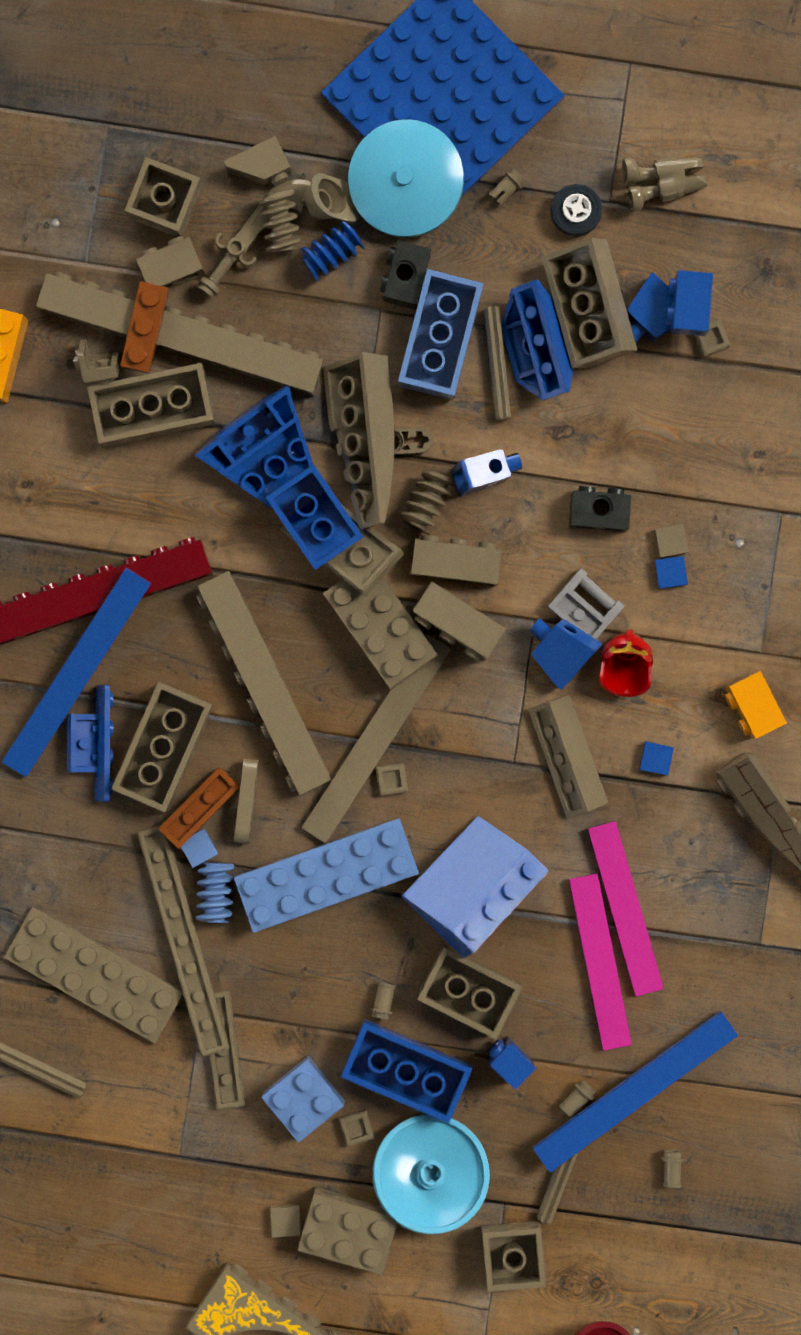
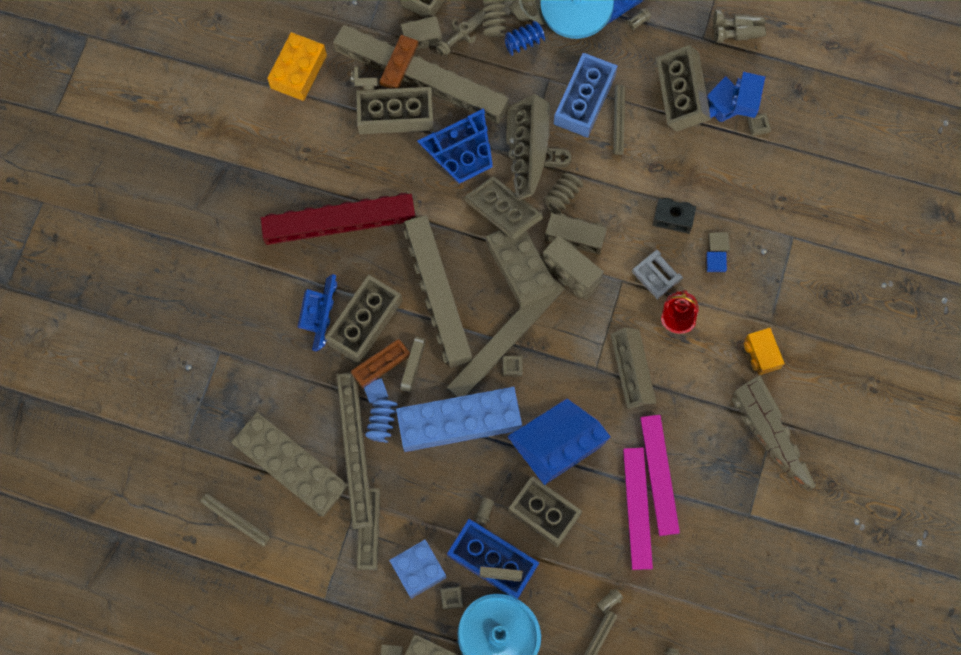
camera: 15 degrees right, 15 degrees down
(76, 672) = (315, 264): blue tile -> none
(314, 517) = (487, 186): blue slope -> none
(413, 258) = (569, 48): pearl dark grey brick -> none
(421, 1097) = (498, 573): none -> dark tan tile
(475, 475) = (601, 179): torso -> none
(510, 1062) = (566, 563): blue brick -> none
(536, 342) = (646, 106): blue wedge -> none
(562, 650) = (638, 297): blue torso -> none
(580, 200) = (678, 31): black wheel -> none
(634, 1091) = (650, 601): blue tile -> none
(656, 758) = (692, 378): blue tile -> none

